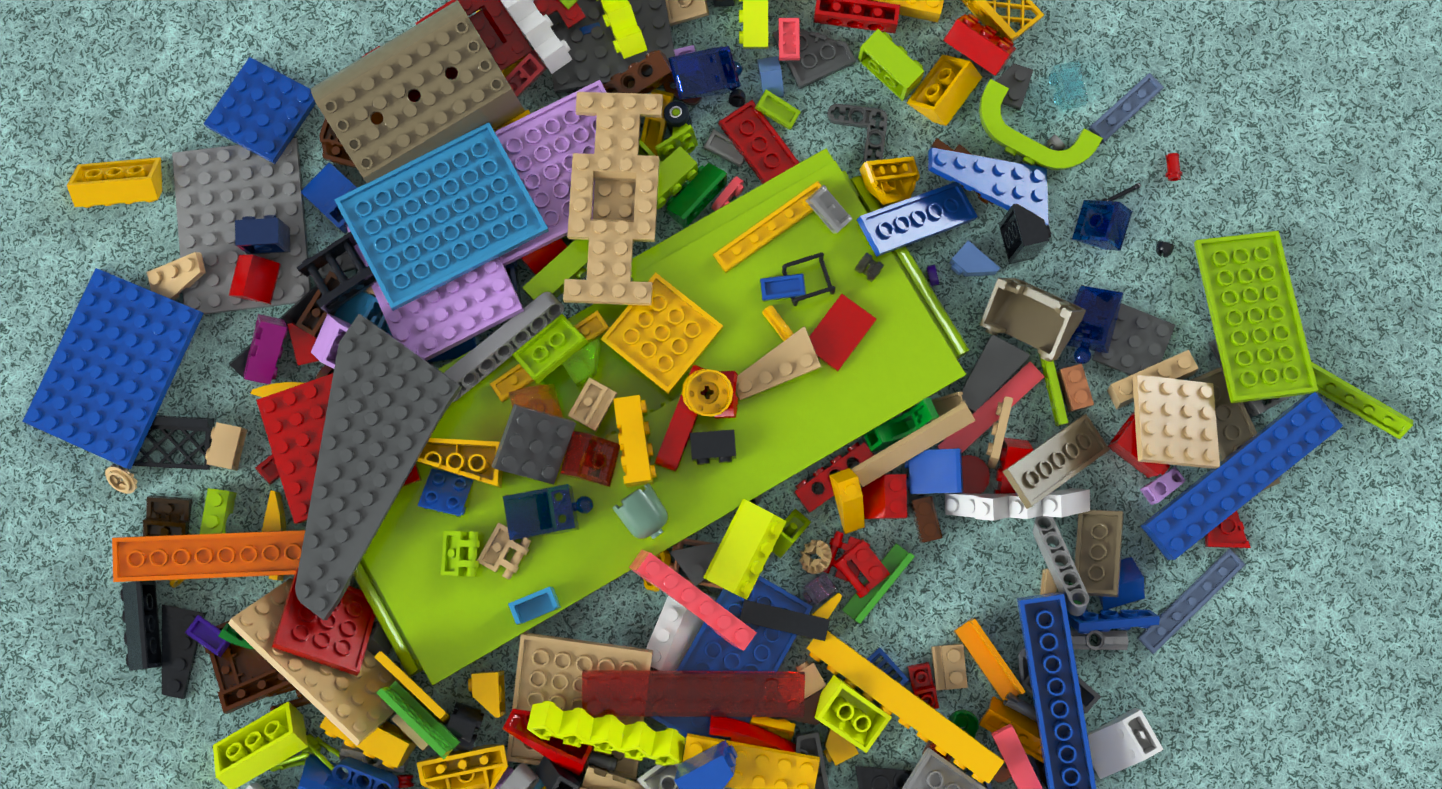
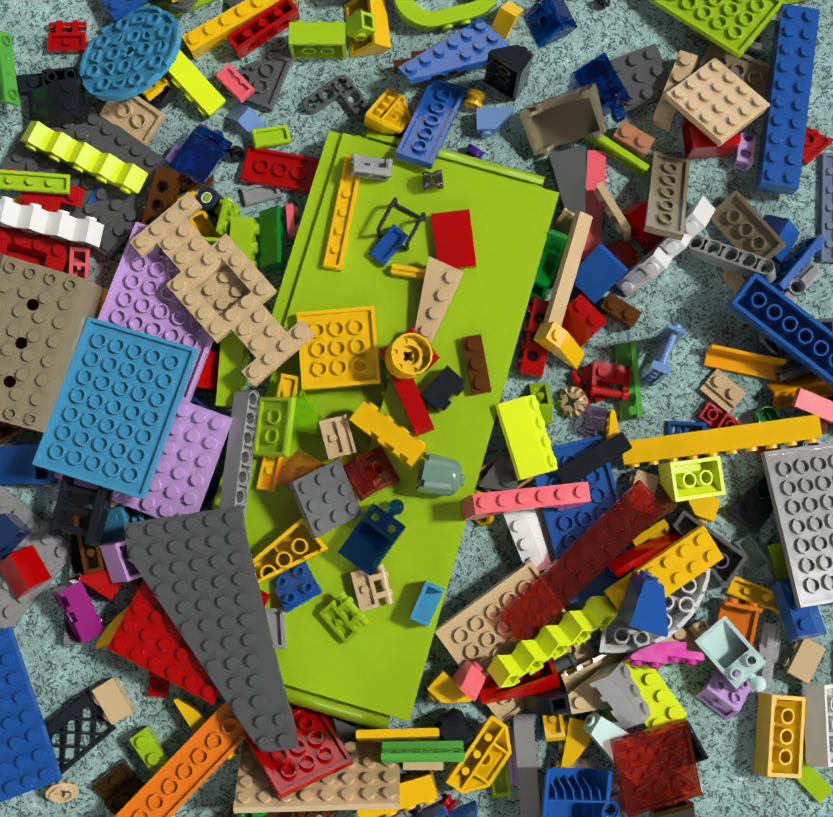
camera: 50 degrees left, 0 degrees up
(400, 509) = (276, 622): none -> light grey tile
(511, 699) = (470, 678): none -> coral slope
(760, 451) = (476, 365): none -> reddish brown plate
(904, 596) = (658, 367): none -> medium blue fence
(935, 84) = (360, 25): none -> lime brick
(975, 232) = (474, 99): none -> yellow wheel
(1067, 189) = (506, 19): none -> yellow slope

